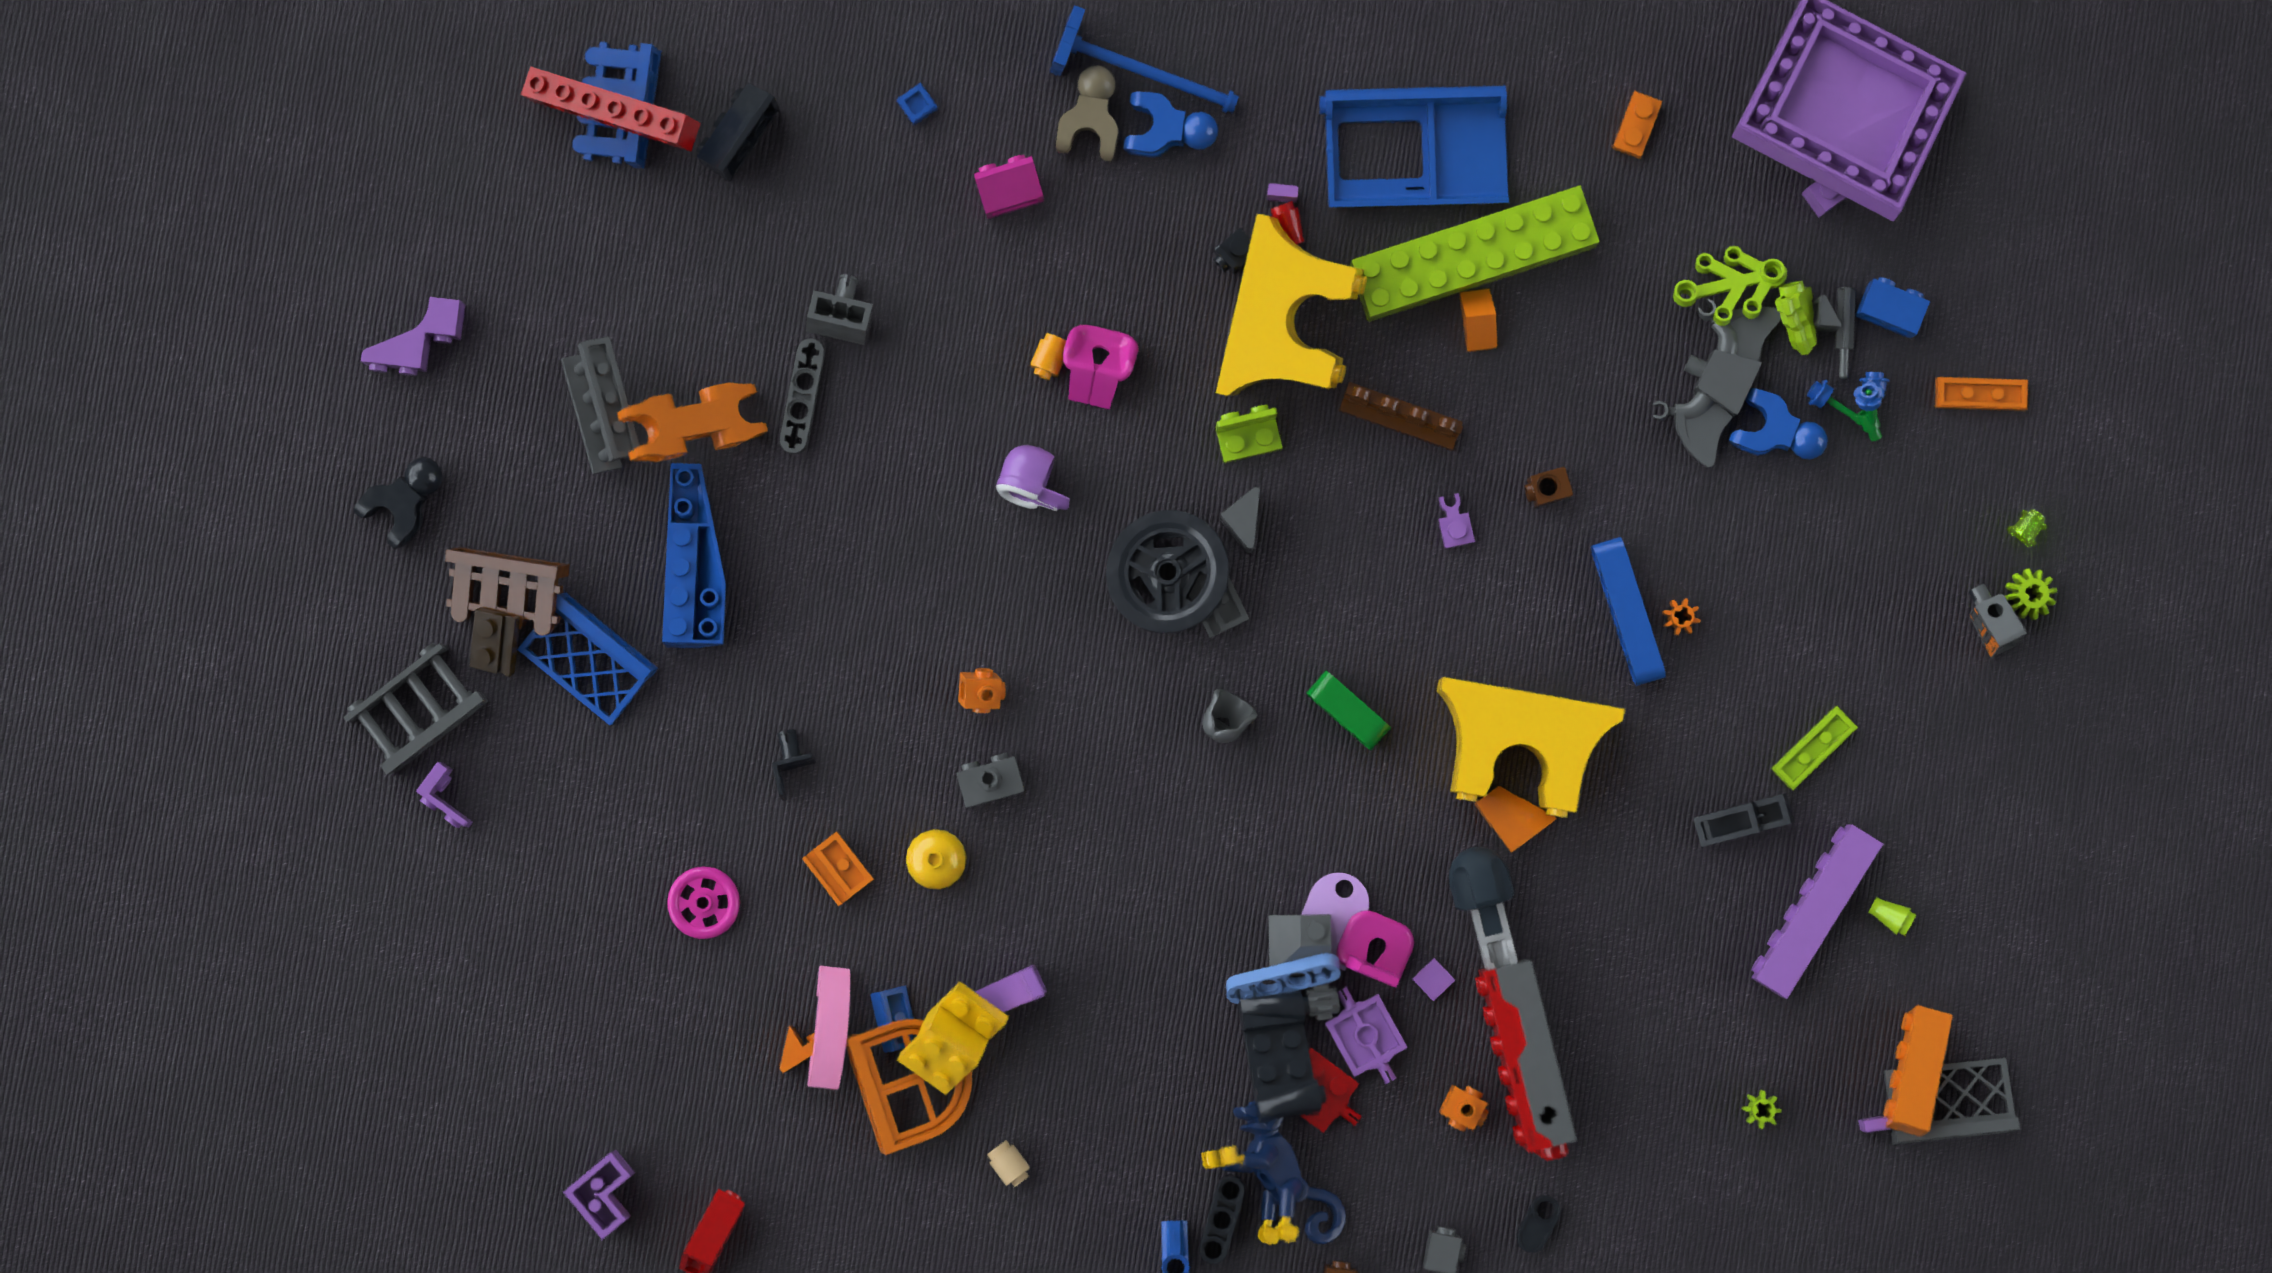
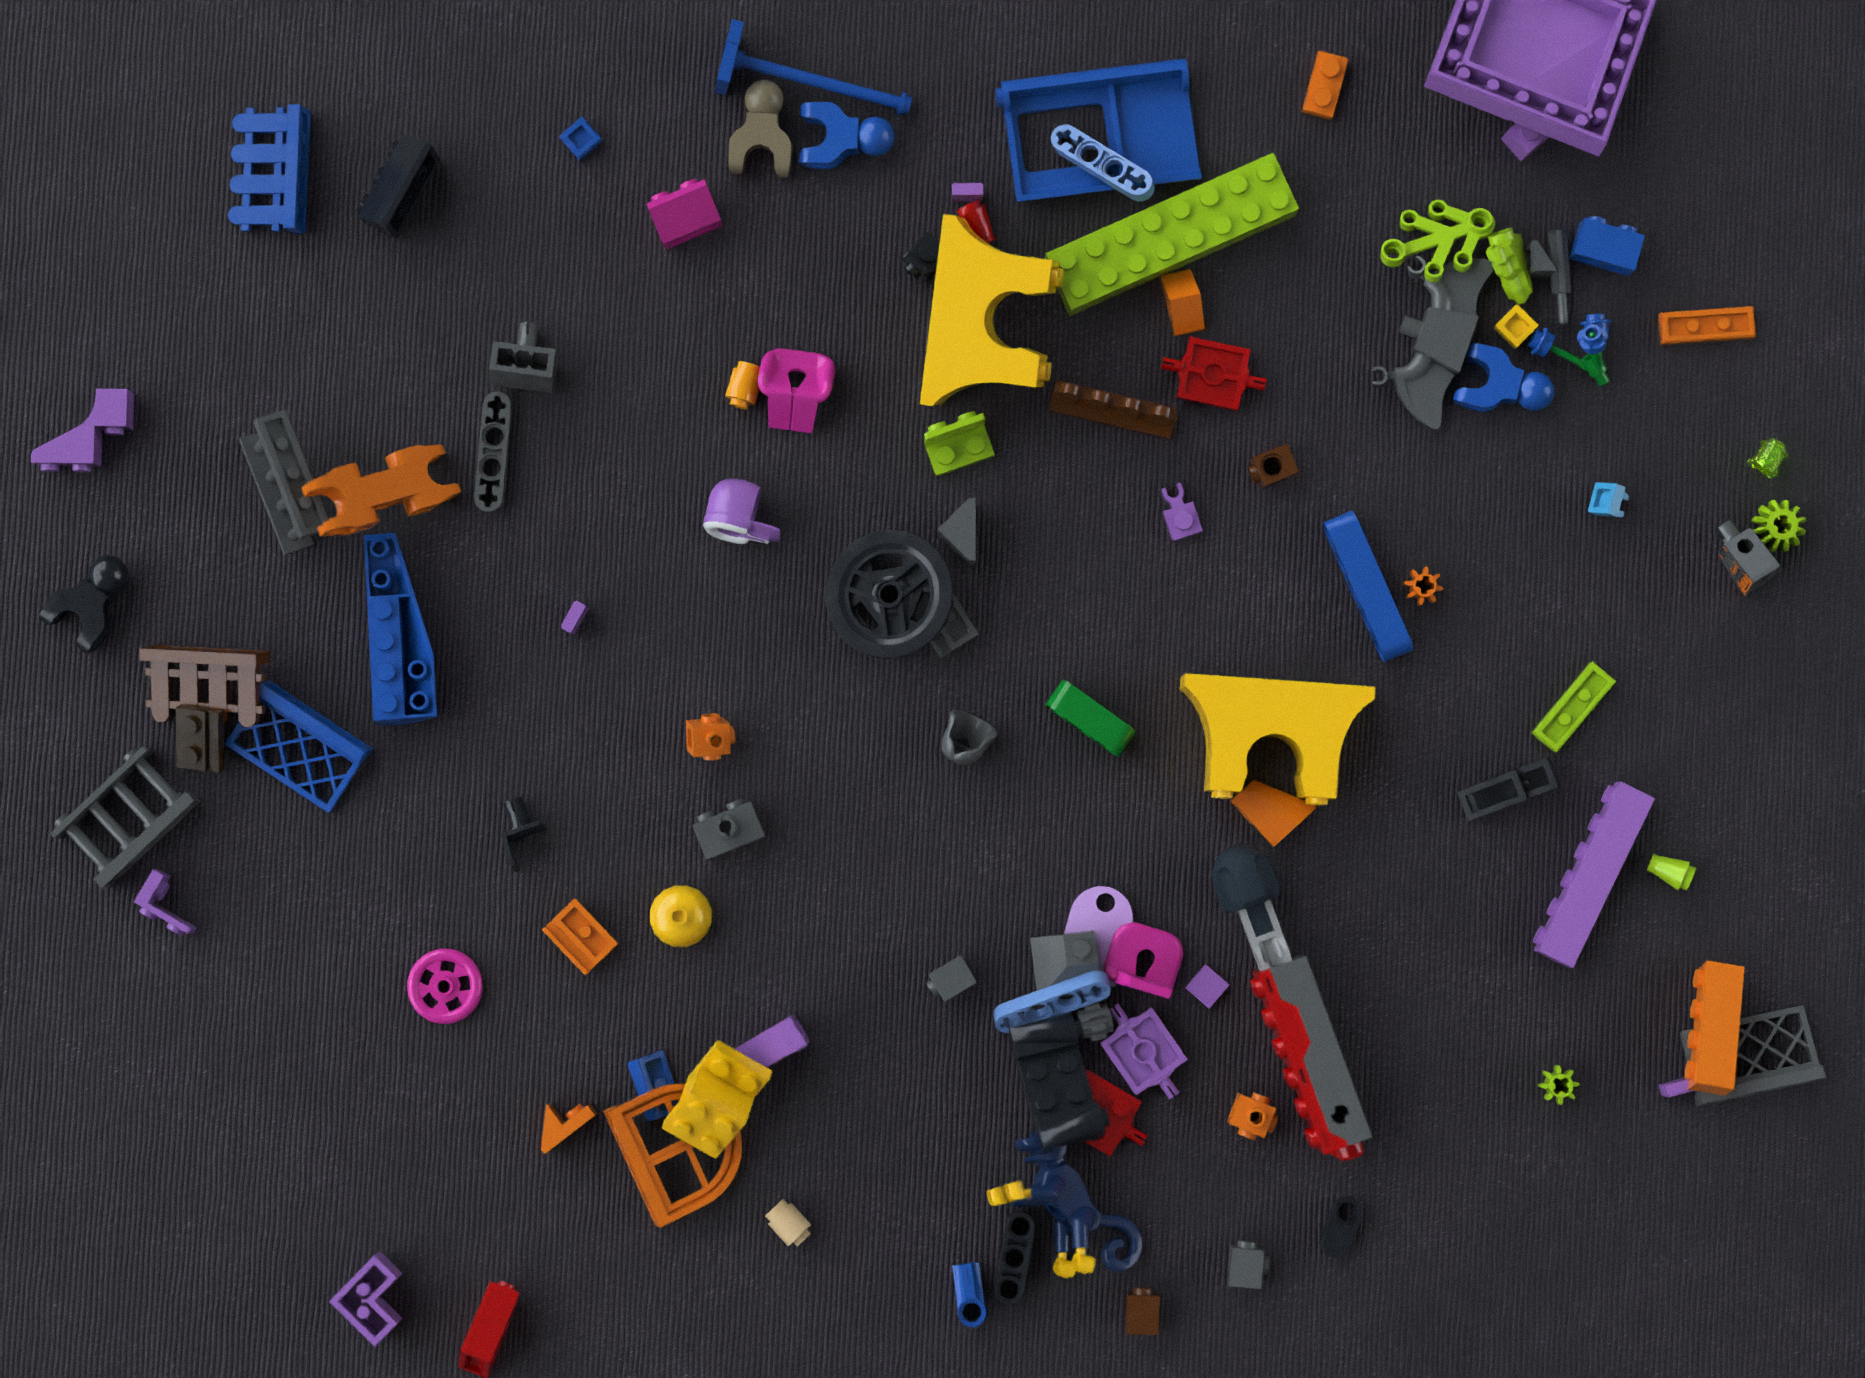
camera: 15 degrees left, 0 degrees up
(611, 109) = (263, 175): brick -> none
(830, 1028) = (589, 1102): bright pink slope -> none
(863, 562) = (574, 617): none -> medium lavender tile
(1188, 946) = (950, 979): none -> dark grey brick
(1412, 181) = (1100, 165): none -> medium blue beam
(1500, 391) = (1213, 373): none -> red plate
(1796, 376) = (1515, 326): none -> yellow plate
(1867, 552) = (1607, 499): none -> dark azure tile

